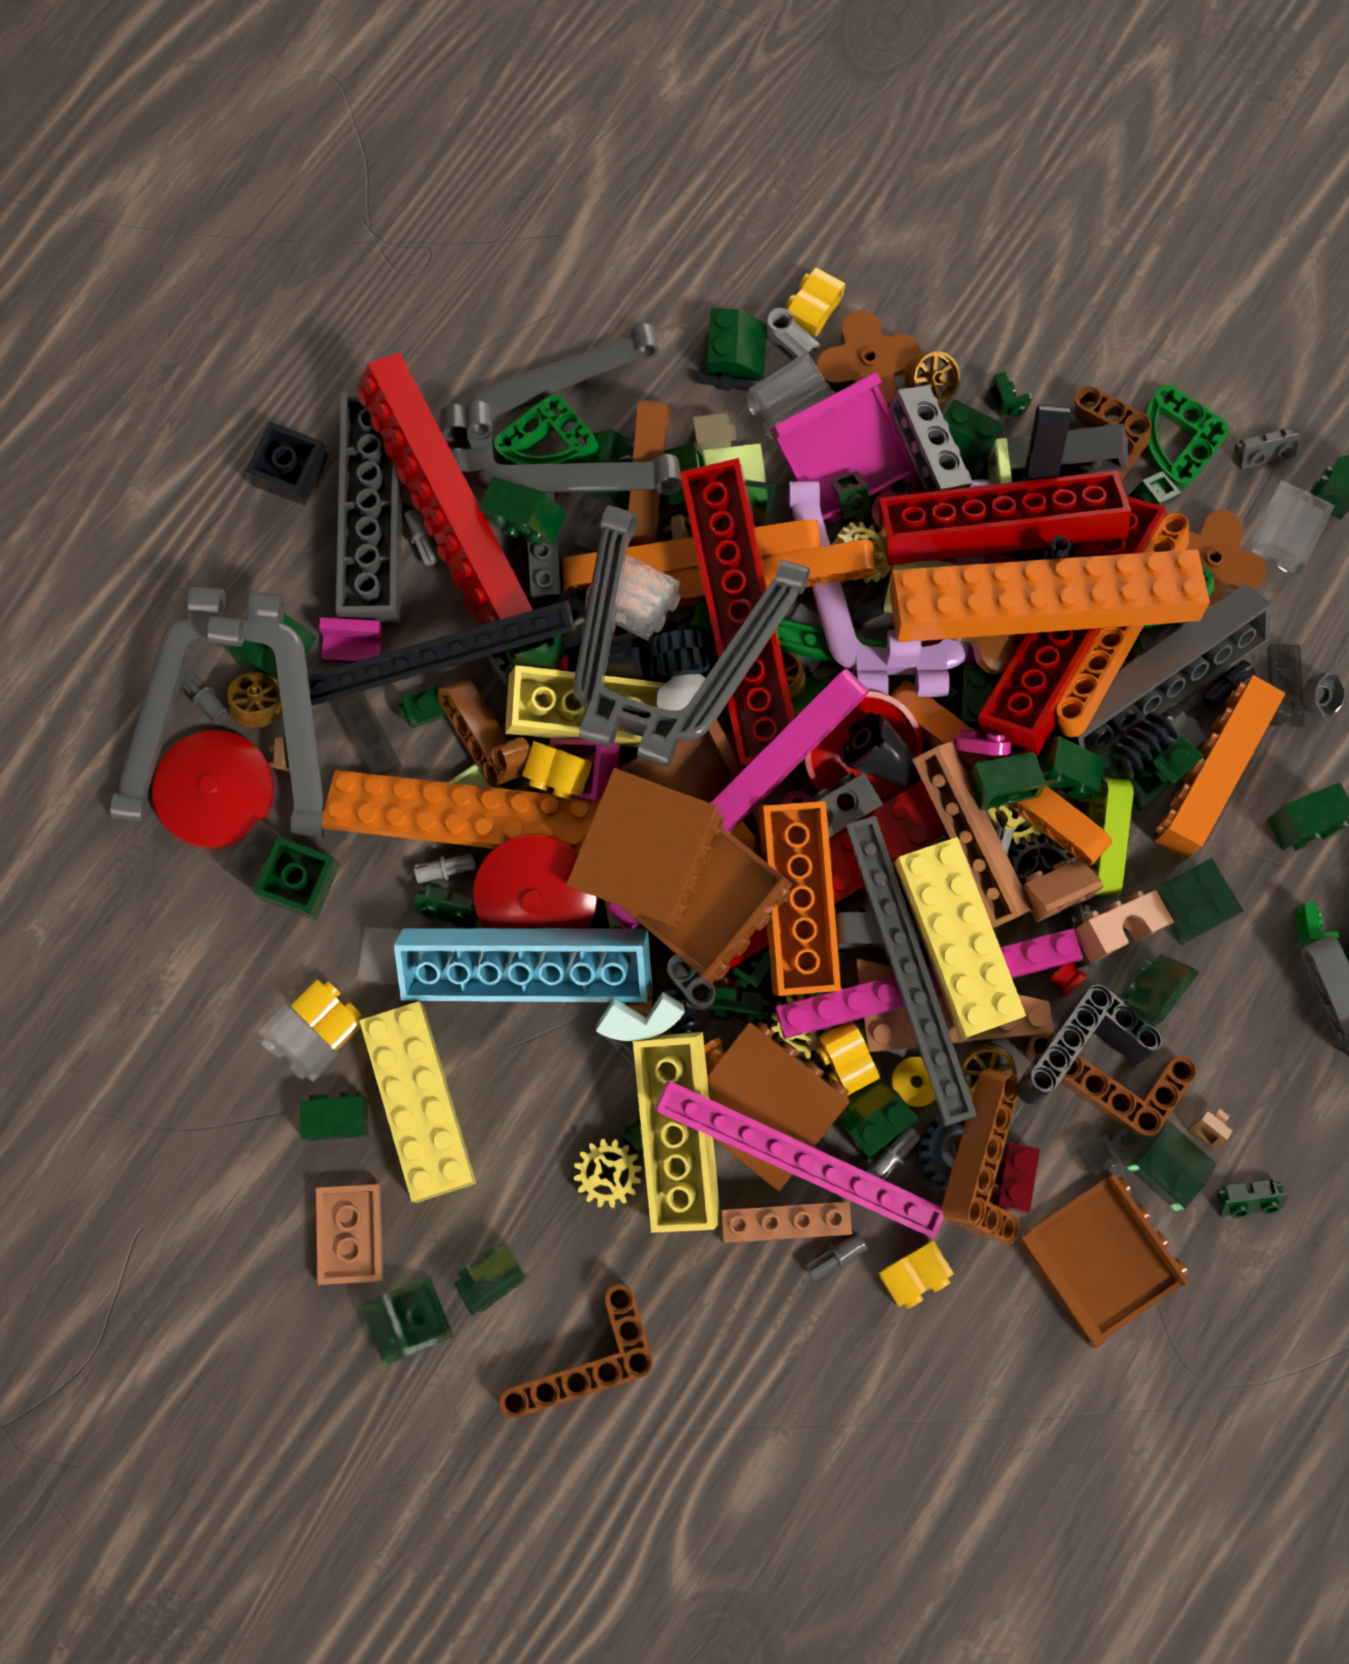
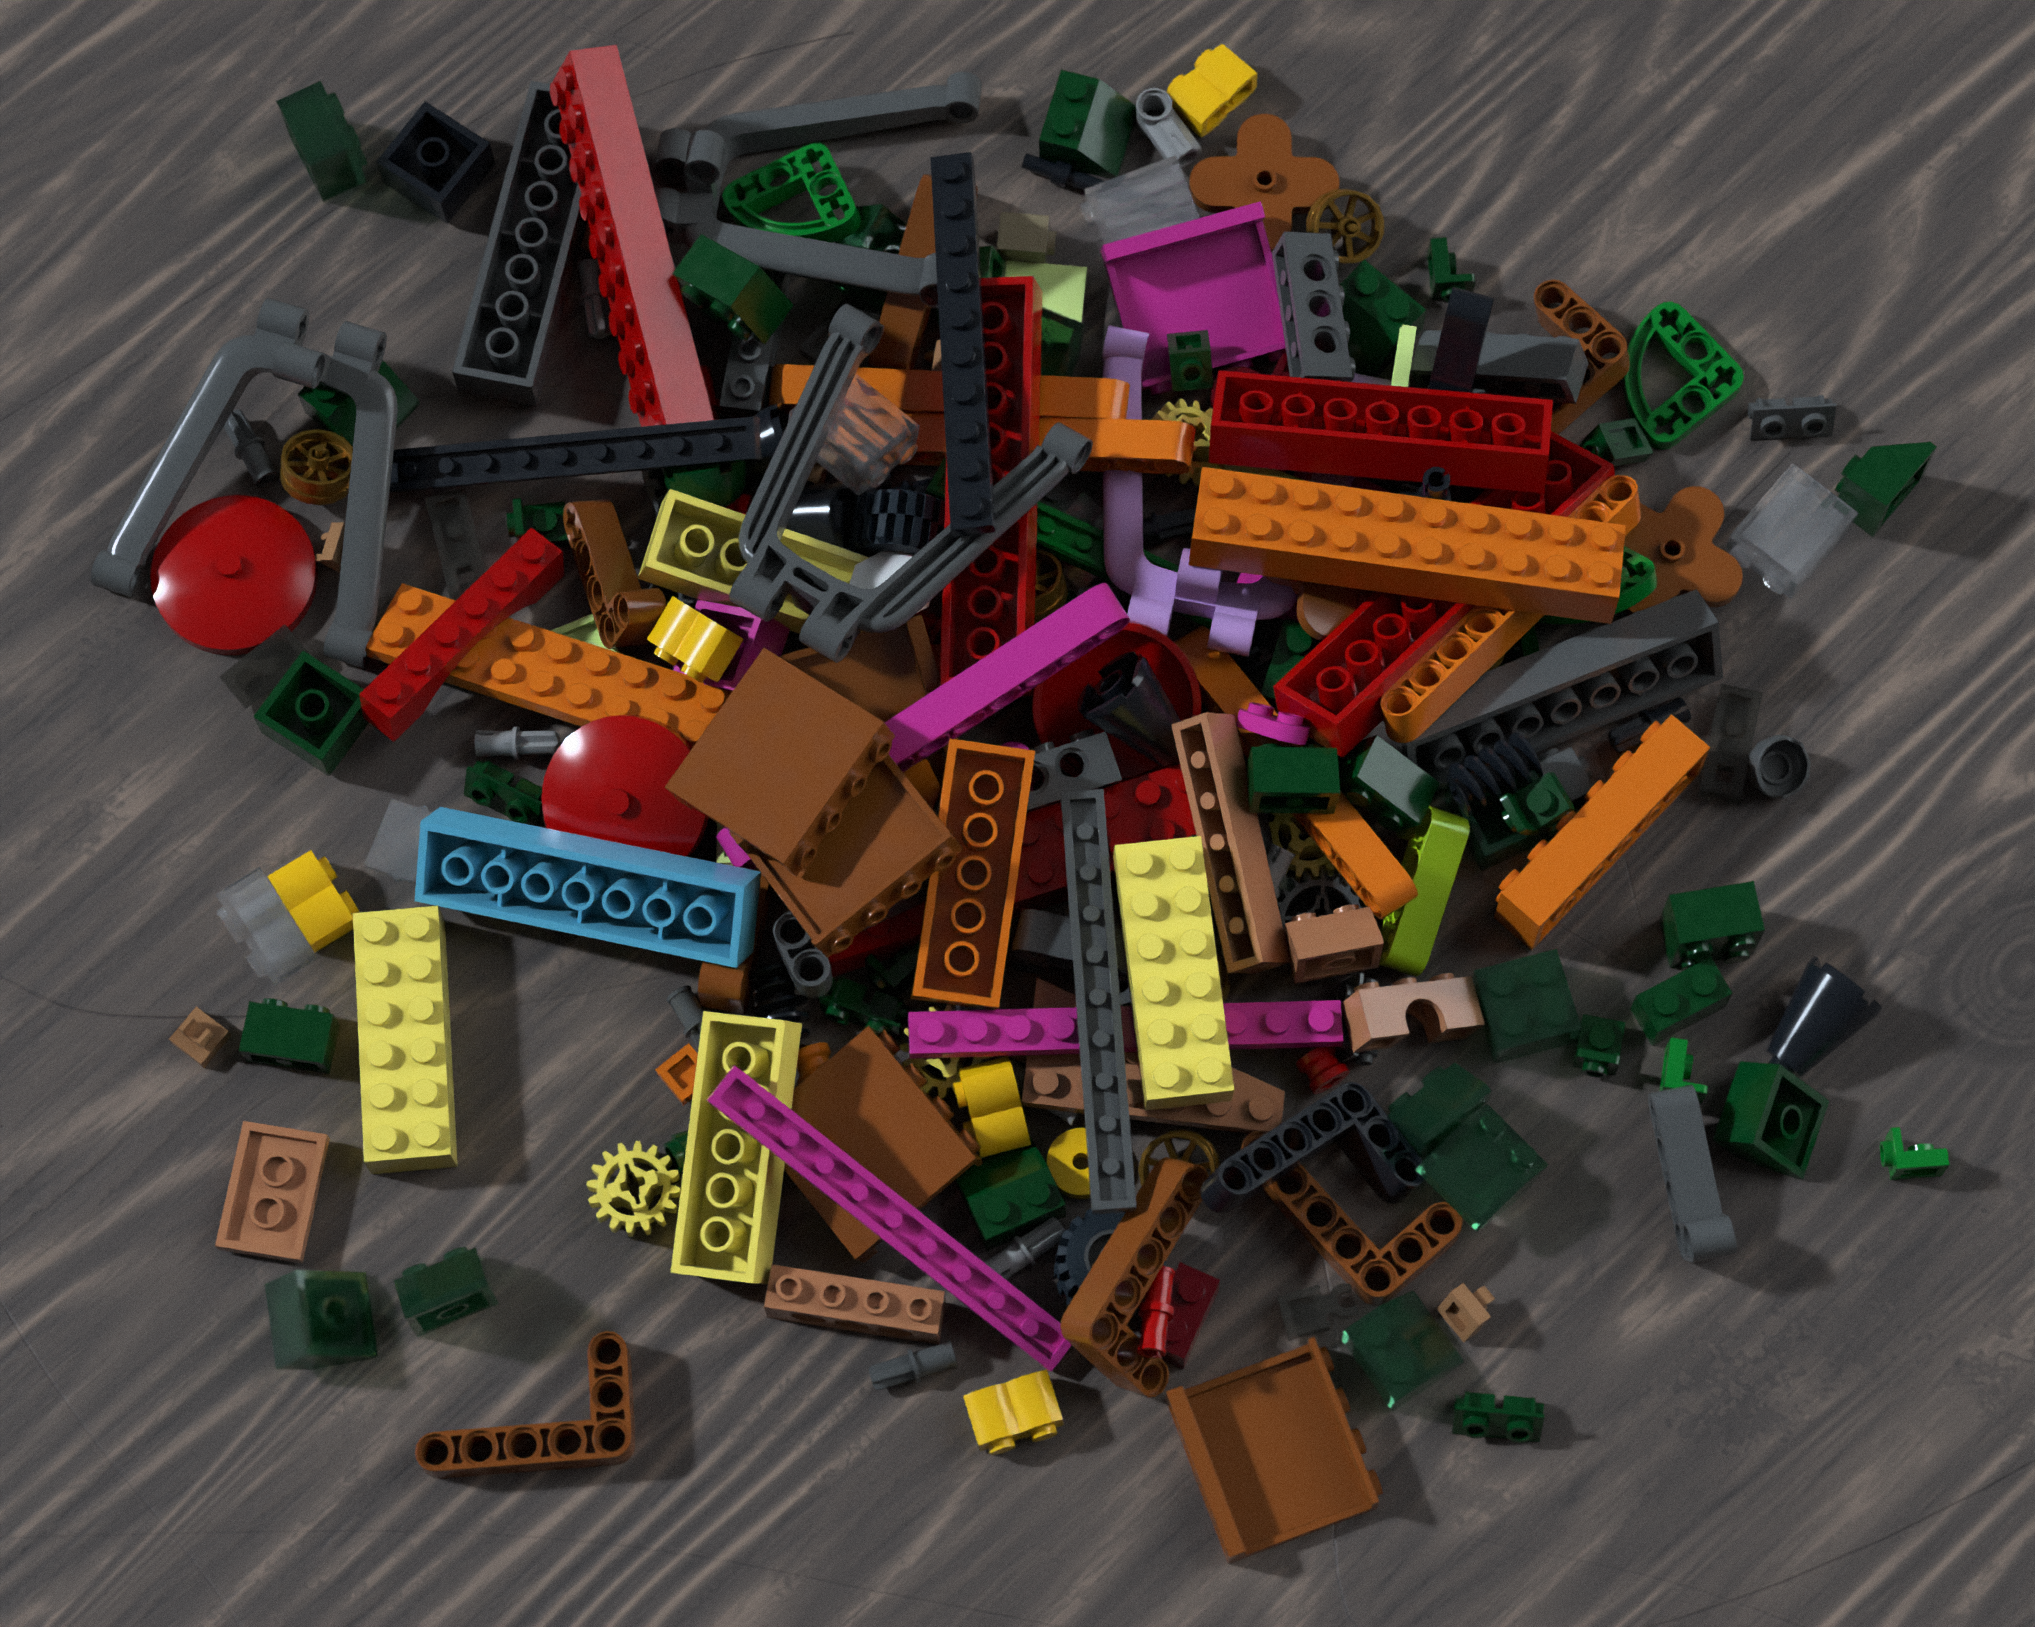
camera: 15 degrees right, 5 degrees down
(203, 463) = (323, 140): none -> clear green brick
(269, 1131) = (200, 1037): none -> medium nougat tile
(350, 639) = (464, 413): dark pink panel -> none
(364, 835) = (414, 677): none -> red arch
(622, 1082) = (679, 1073): none -> orange plate
(628, 1025) = (701, 988): light aqua brick -> none
(701, 519) = (962, 345): none -> black plate
(1005, 1187) = (1155, 1315): none -> red pin
(1200, 1026) = (1482, 1167): none -> clear green slope
(1253, 920) = (1599, 1046): none -> dark green bracket
(1301, 874) = (1681, 1001): none -> dark green brick

